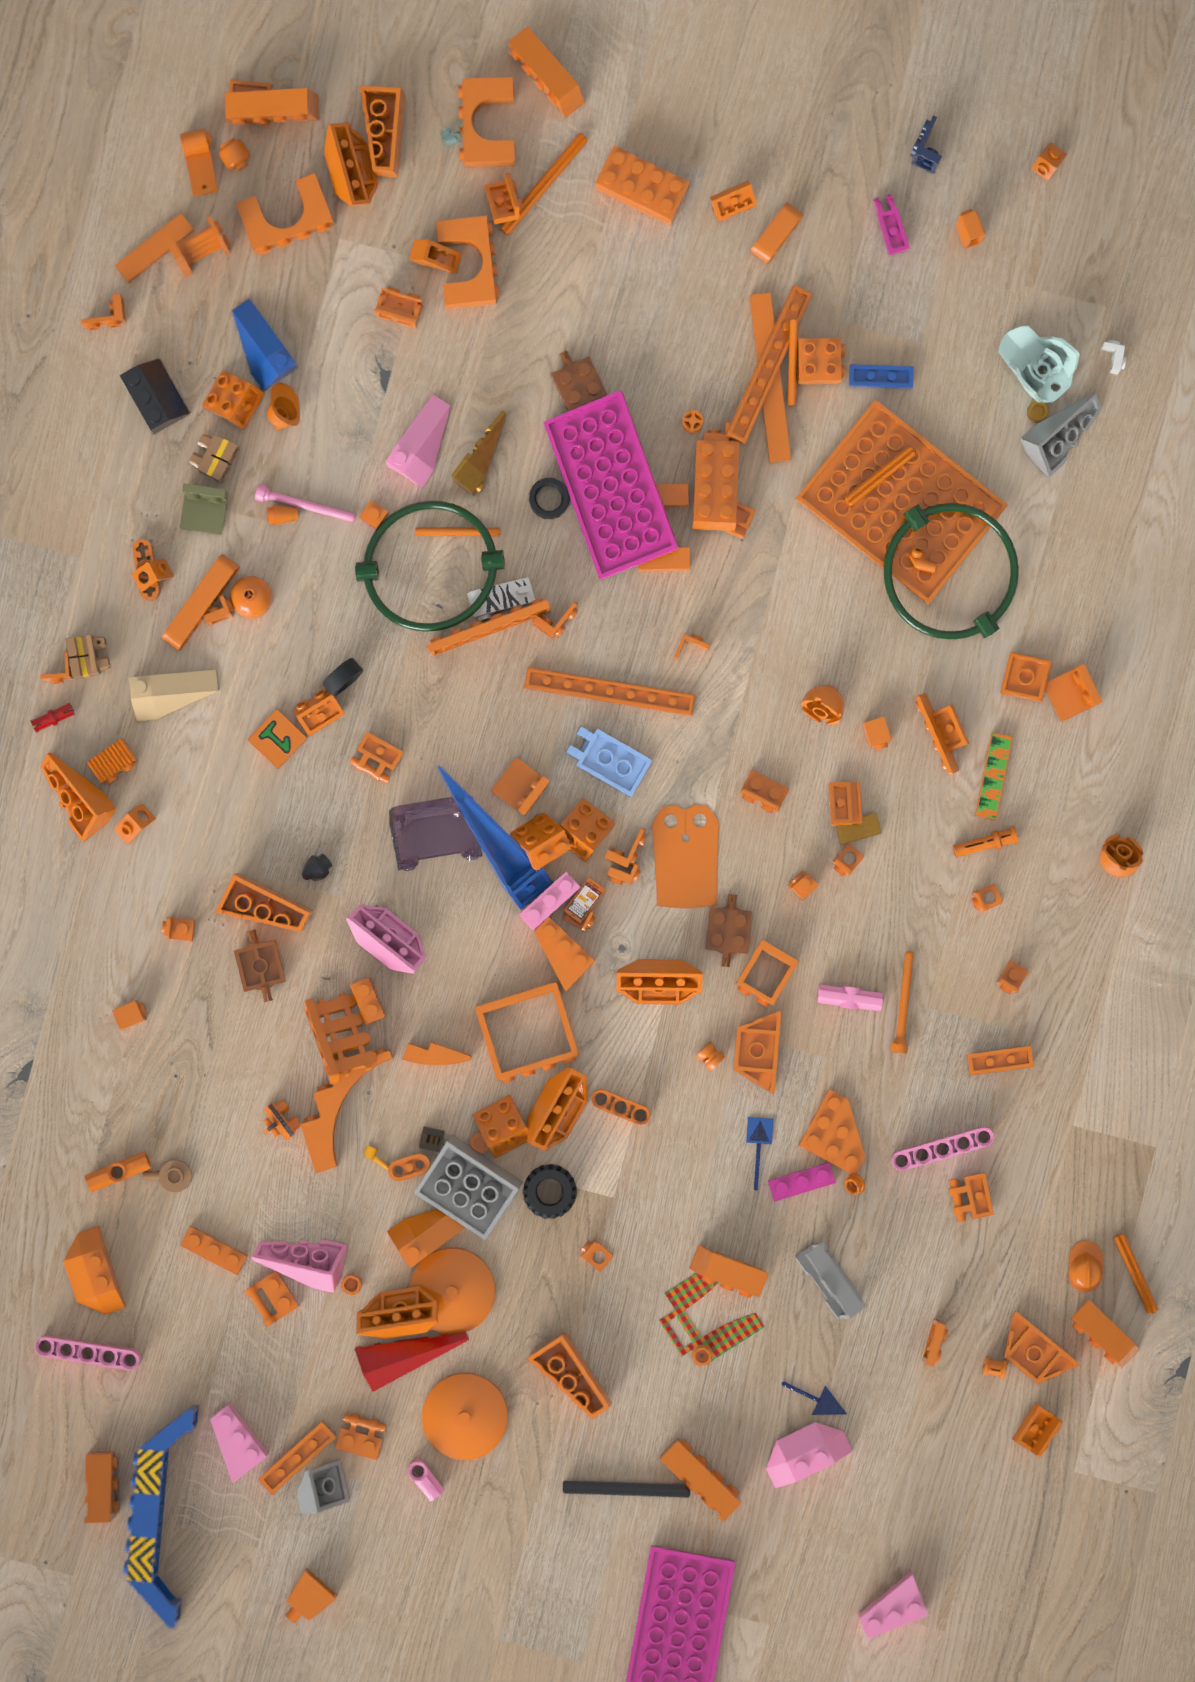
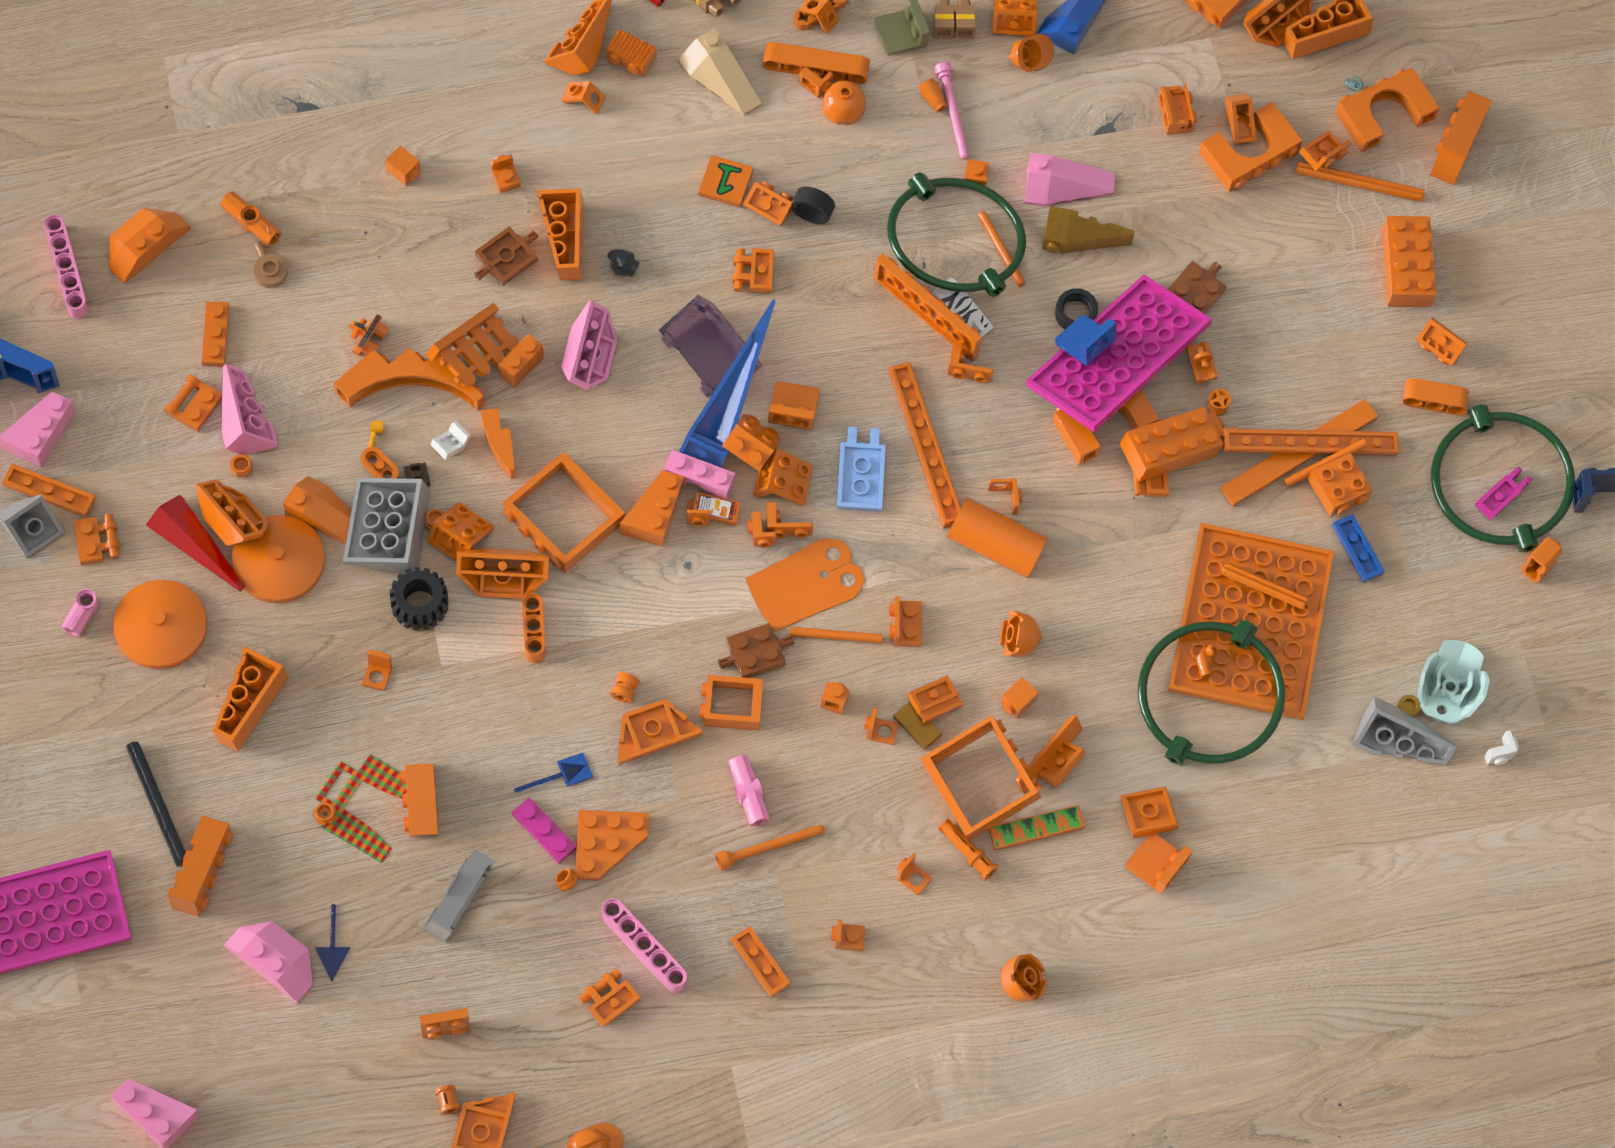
camera: 55 degrees right, 20 degrees down
(415, 1096) = (451, 441): none -> white bracket
(587, 508) = (1086, 338): none -> blue bracket
(651, 417) = (1201, 362): none -> orange hips
(659, 981) = (671, 604): orange wedge -> none
(726, 675) = (997, 537): none -> orange brick
(745, 855) = (836, 634): none -> orange bar
(936, 836) = (958, 743): none -> orange window
(938, 229) = (1524, 534): none -> dark green piece

